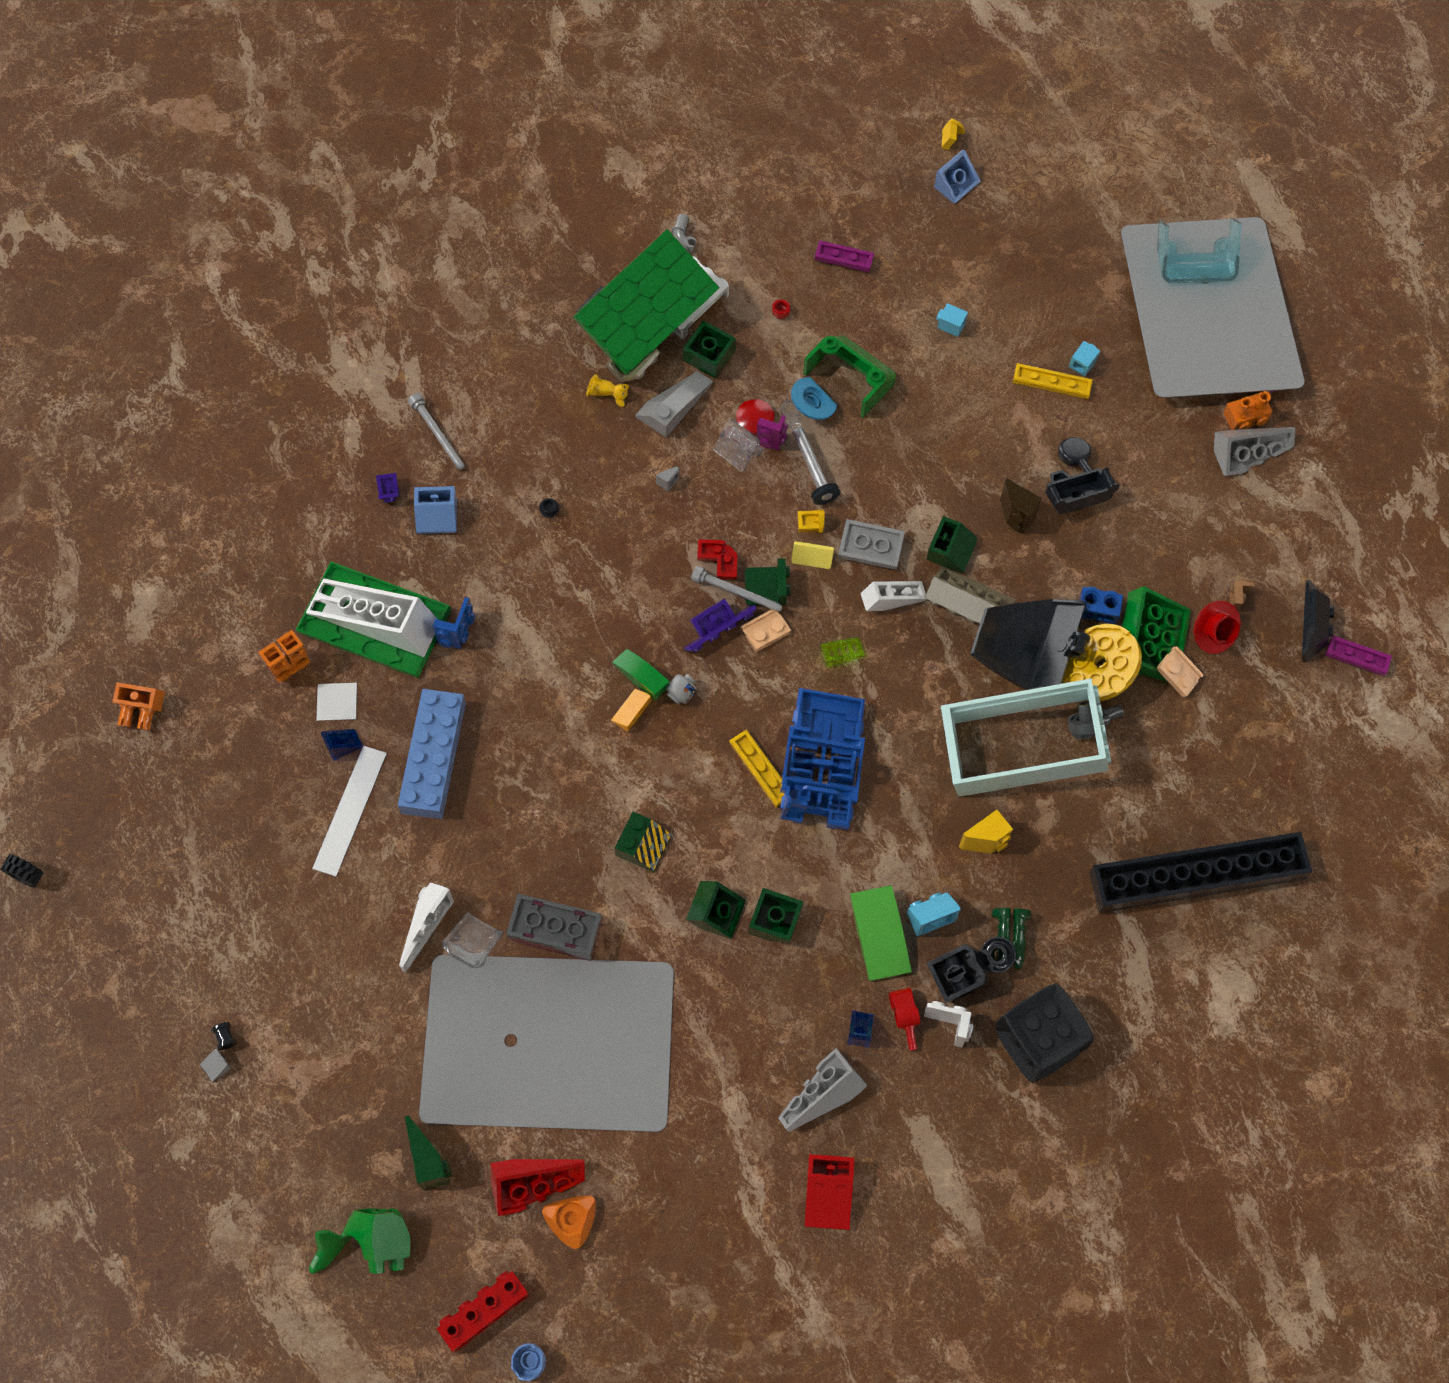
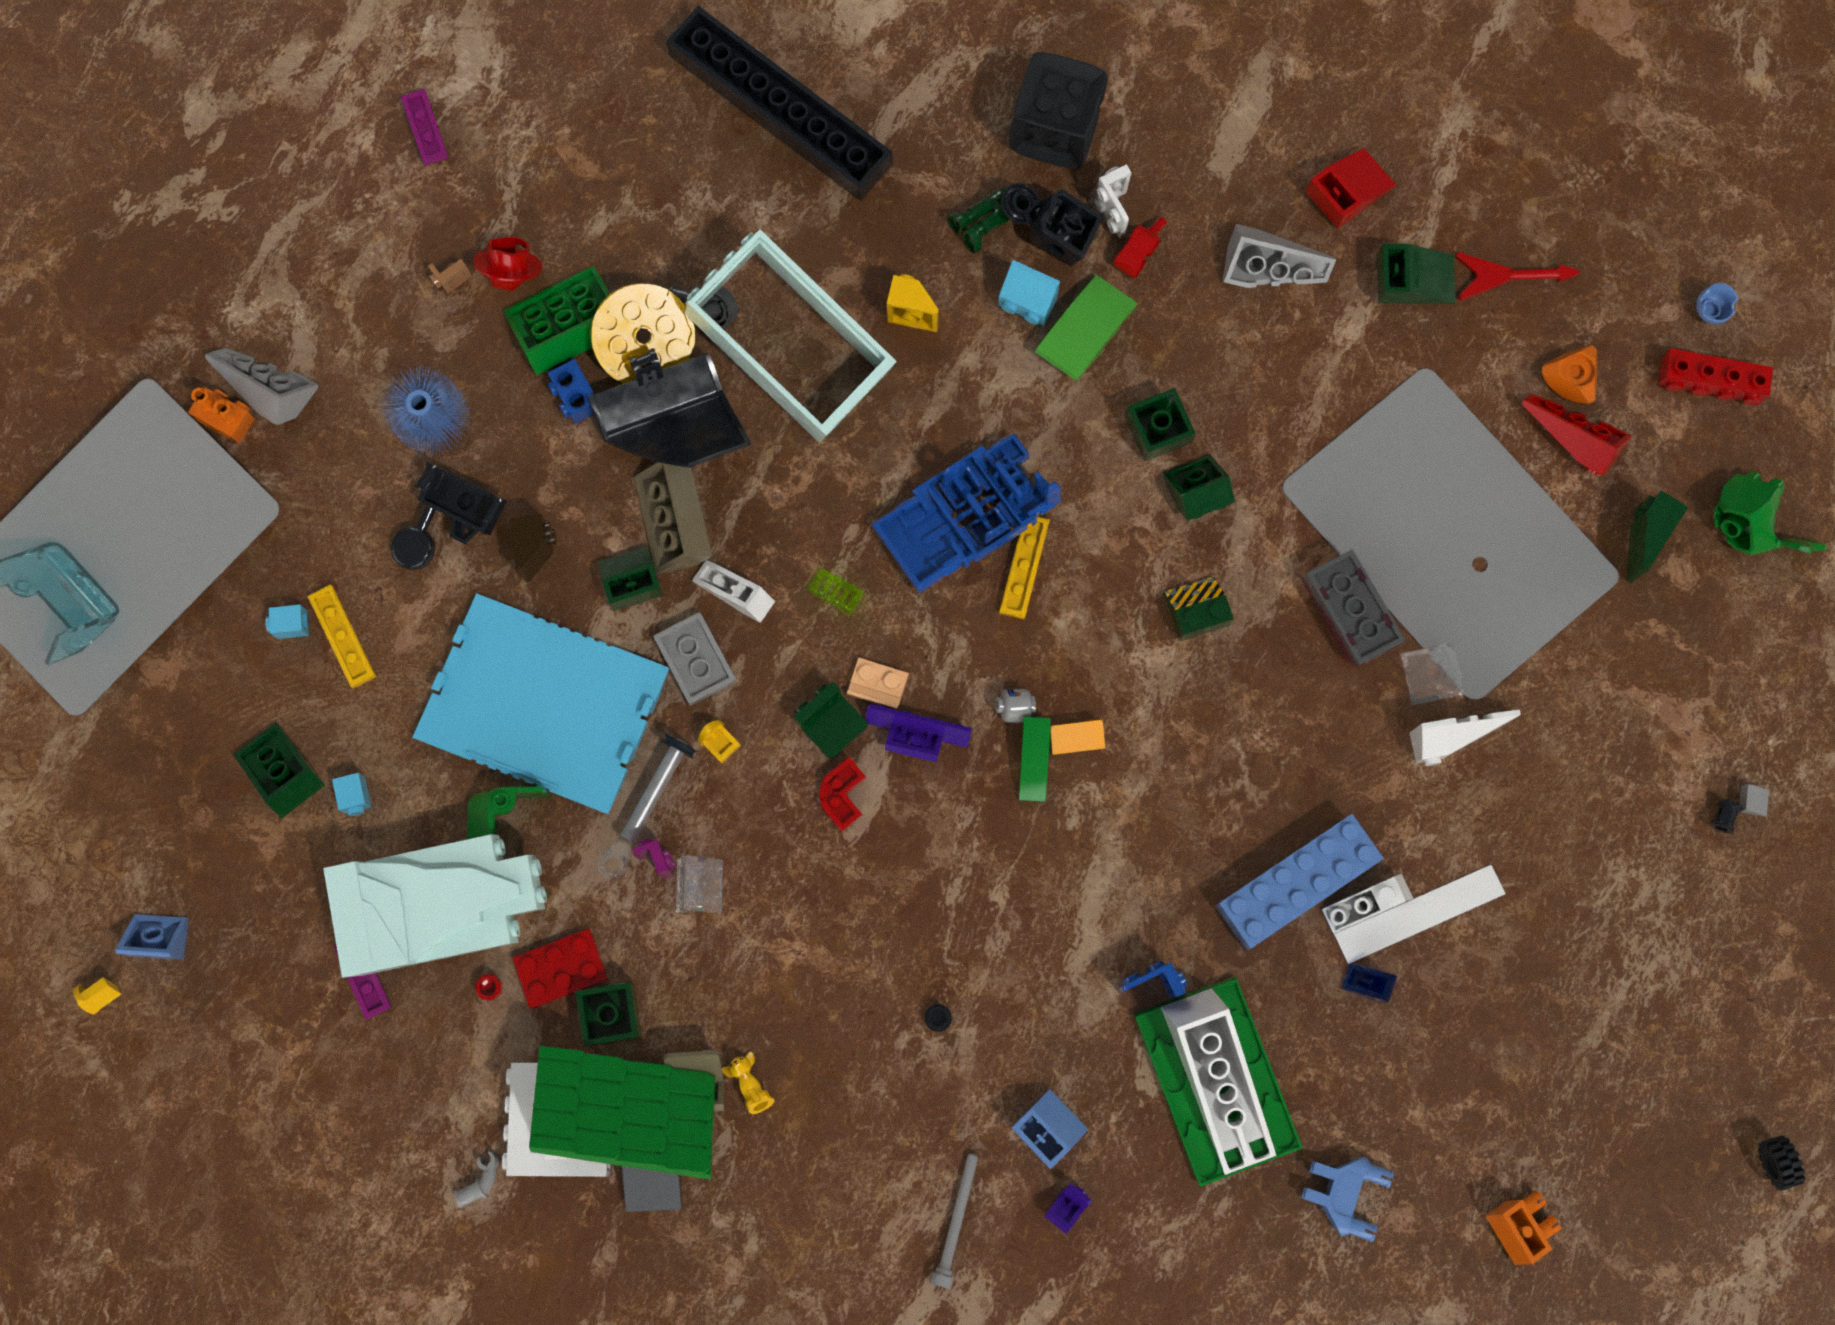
camera: 130 degrees left, 10 degrees up
(251, 626) = (1343, 1194): none -> medium blue connector
(286, 663) = (1350, 1116): orange hips -> none
(336, 701) = (1330, 1035): white sticker -> none
(382, 784) = (1367, 903): none -> white slope
(667, 478) = (798, 922): light grey slope -> none
(672, 405) = (708, 1001): light grey wedge -> none
(685, 1233) = (1491, 275): none -> red piece
(701, 575) = (877, 794): light grey piece -> none
(729, 1175) = (1414, 275): none -> dark green slope
(750, 413) = (645, 901): red dish -> none
(758, 350) = (560, 968): none -> red plate
(812, 399) = (578, 853): dark azure hat -> none
(812, 555) = (758, 705): light yellow slope -> none
(850, 299) = (430, 904): none -> light aqua panel
(860, 1029) = (1189, 273): clear blue slope -> none
(918, 449) = (541, 703): none -> medium azure piece
(998, 295) = (278, 770): none -> dark green slope
(1154, 512) = (426, 410): none -> medium blue piece
(1179, 671) = (584, 266): light nougat plate -> none
(1316, 621) = (420, 185): black wedge -> none

